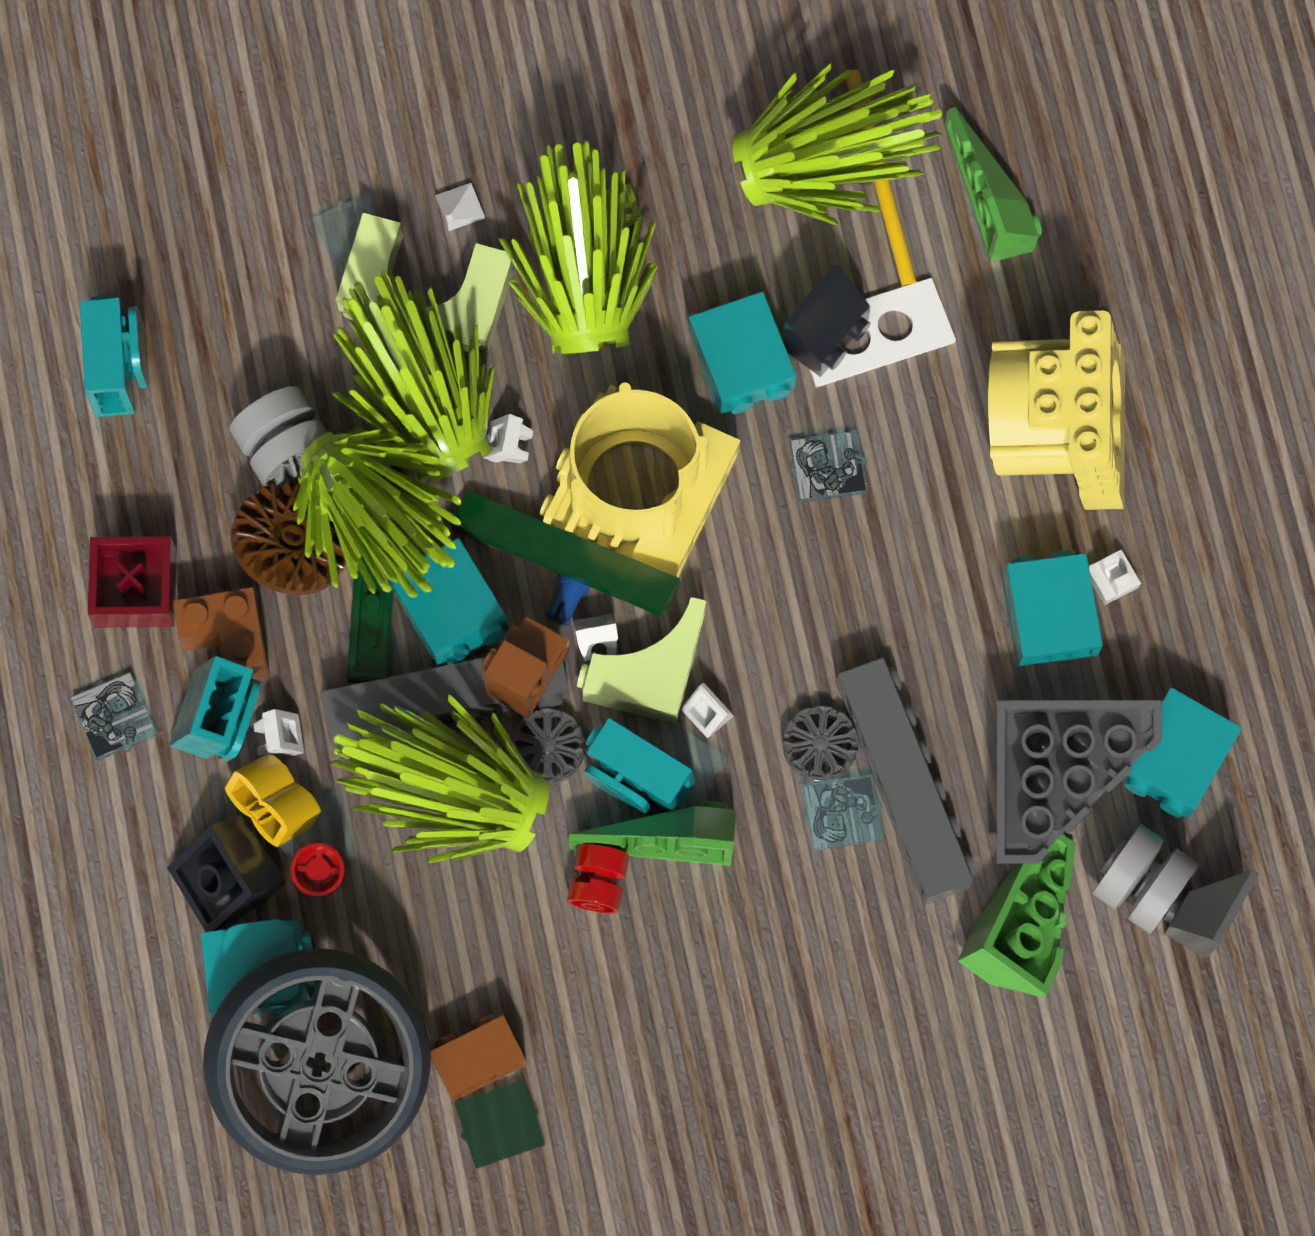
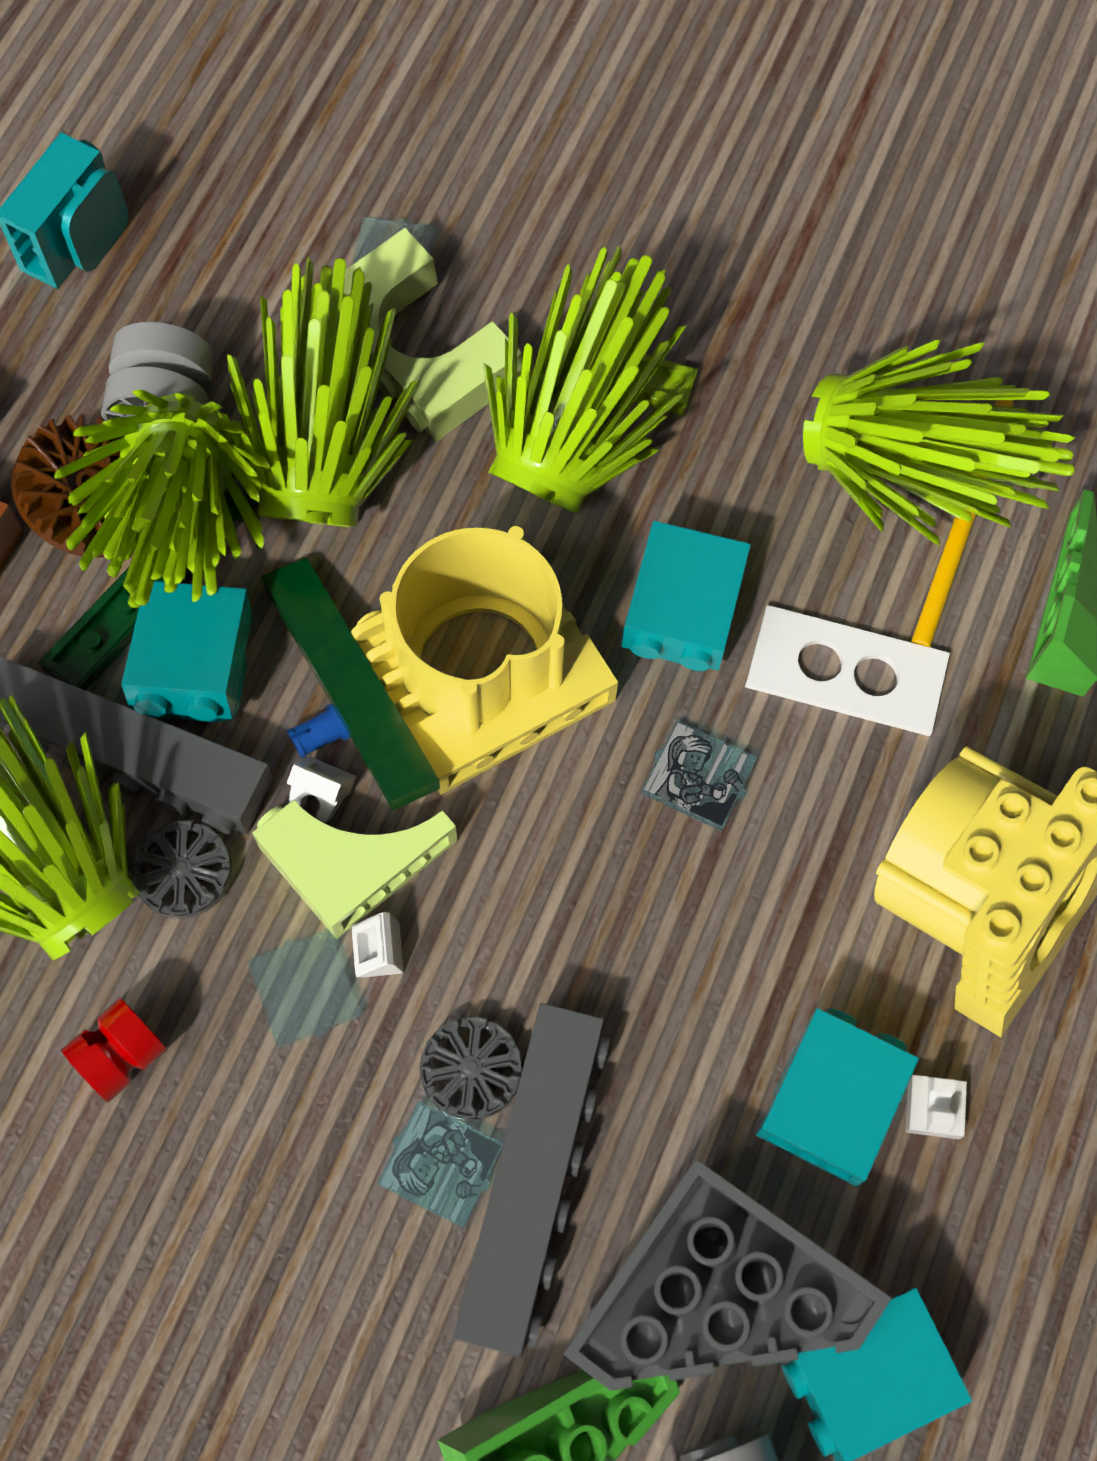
camera: 35 degrees right, 5 degrees down
(459, 207) = (511, 291): white slope -> none
(504, 438) = (380, 529): white tile -> none
(524, 666) = (198, 764): dark orange brick -> none
(636, 770) = (238, 957): teal brick -> none
(680, 835) = (243, 1064): bright green wedge -> none
(827, 322) = (799, 618): black slope -> none

